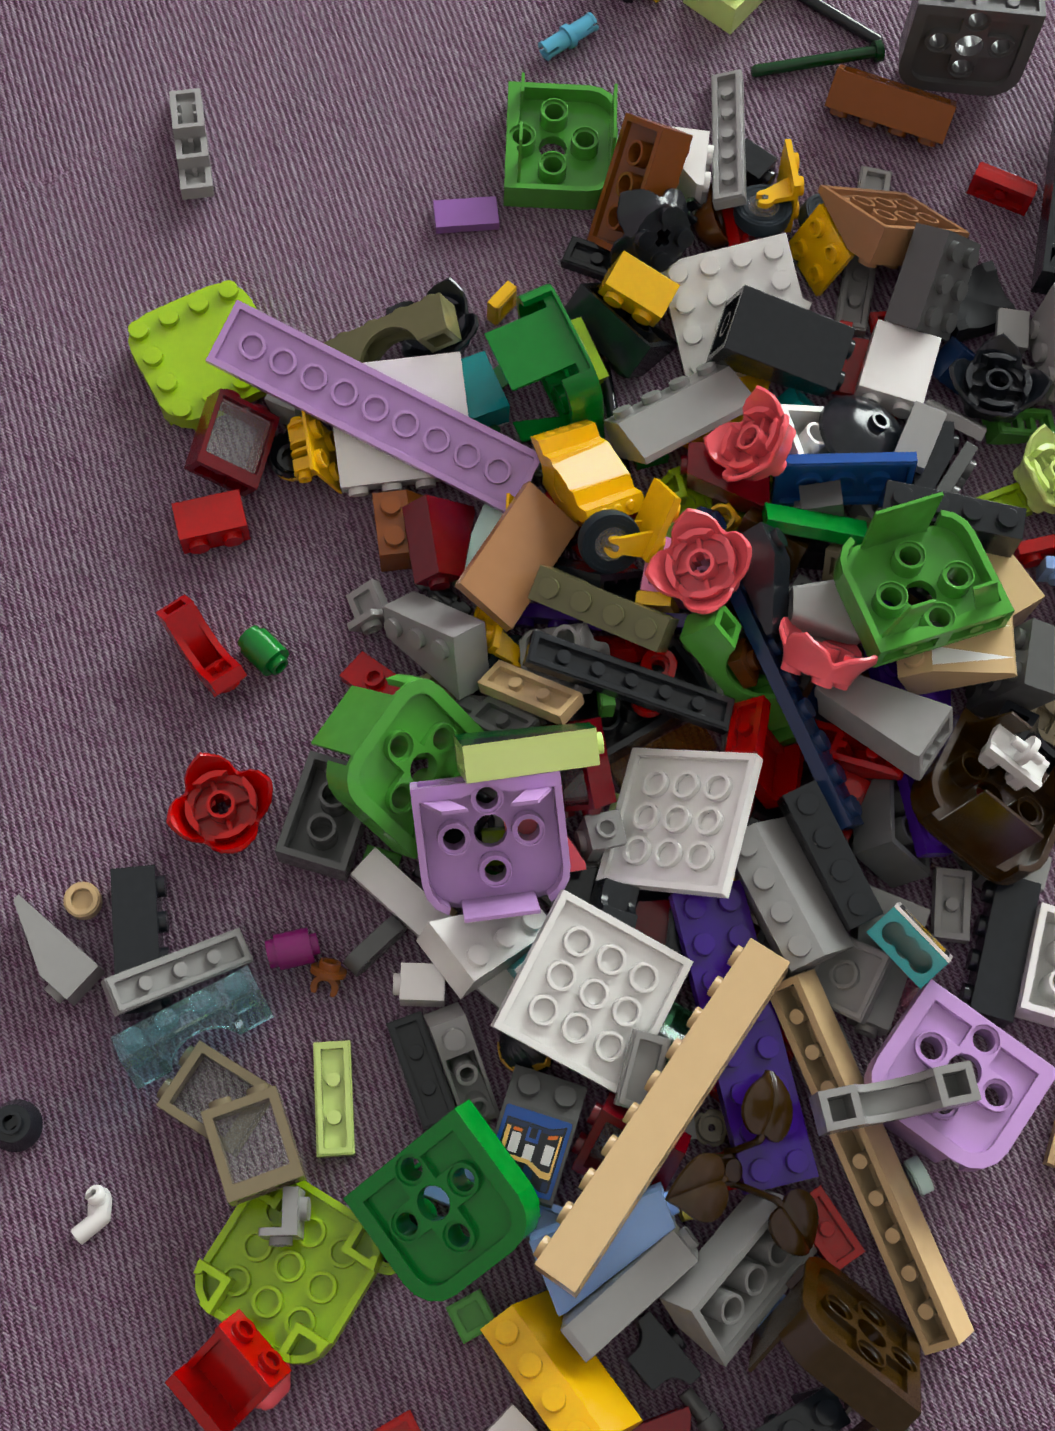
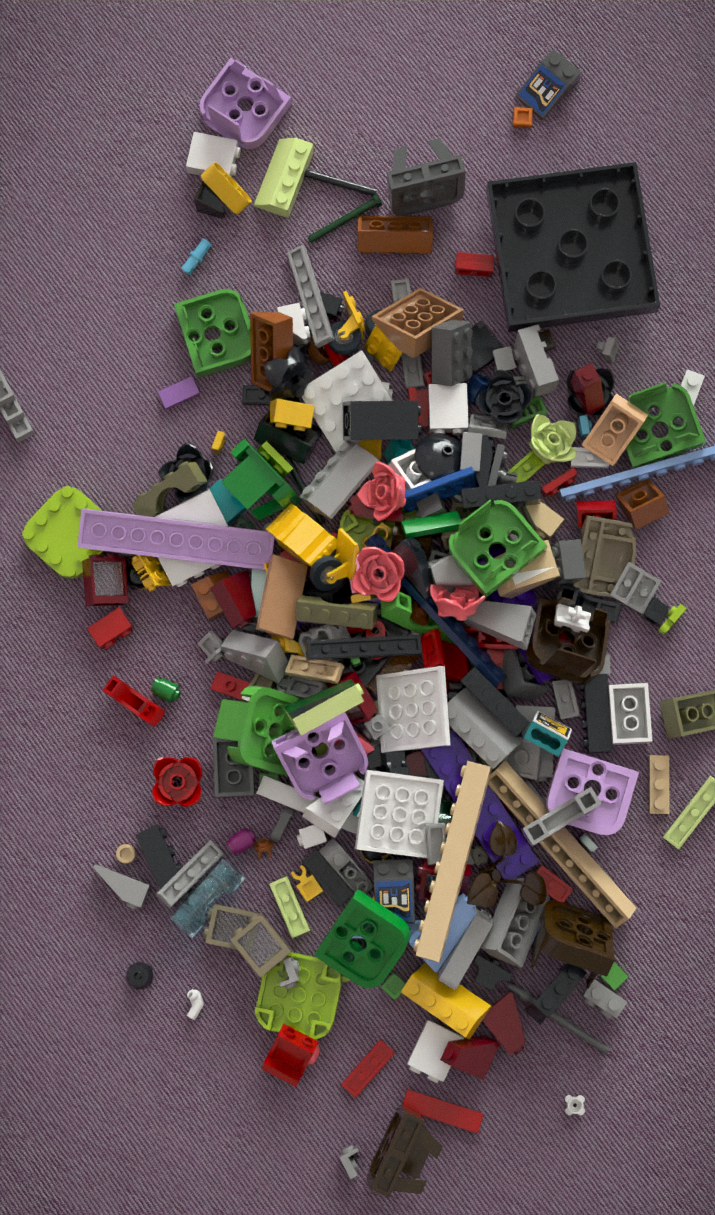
camera: 10 degrees left, 10 degrees up
(381, 1072) = (309, 886): none -> yellow plate

